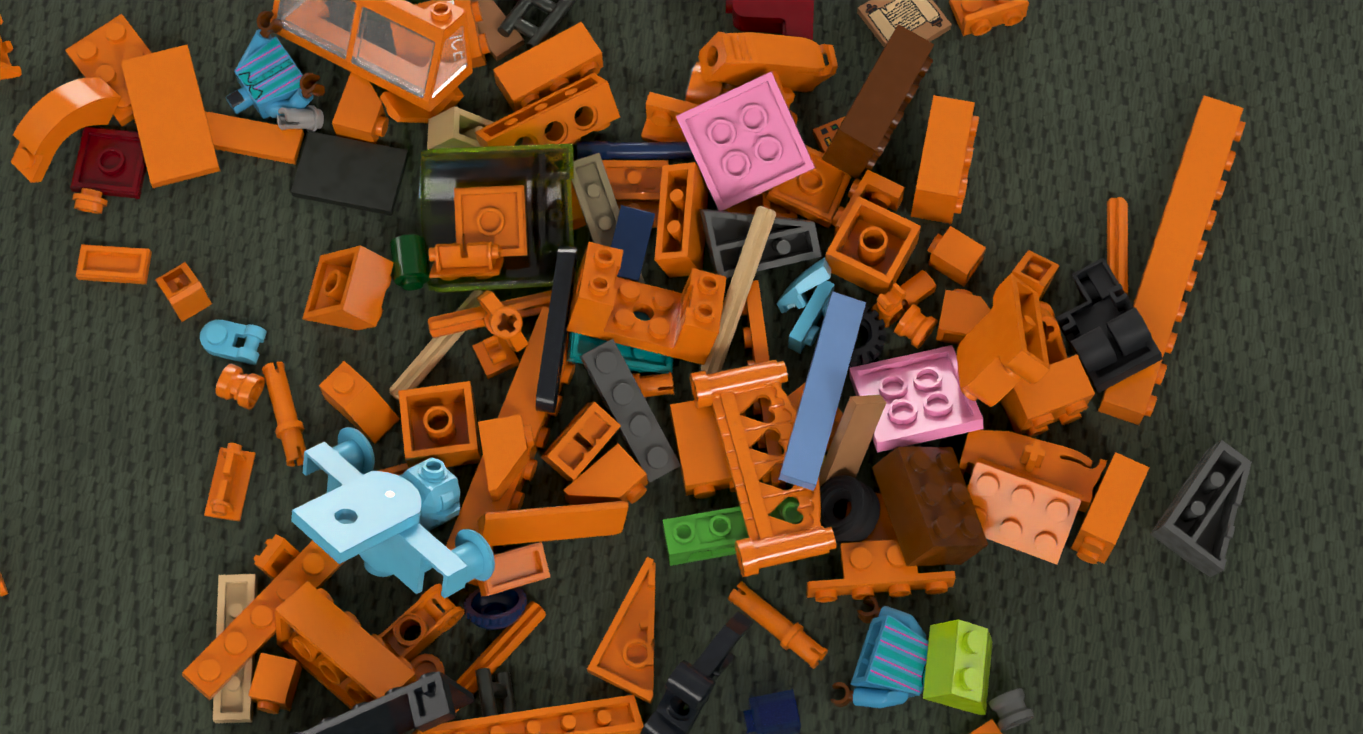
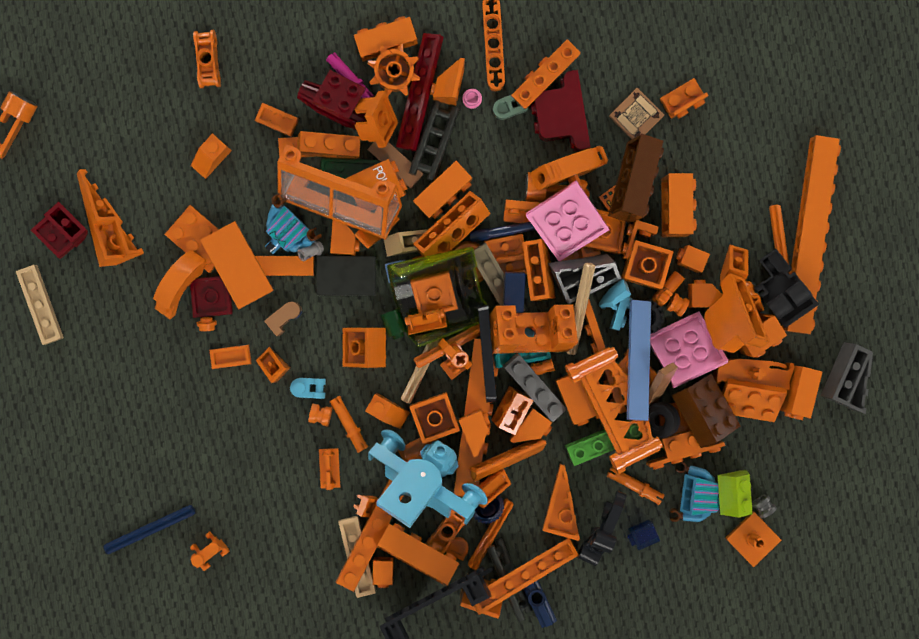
camera: 15 degrees left, 20 degrees up
(223, 213) = (282, 316): none -> medium nougat leg

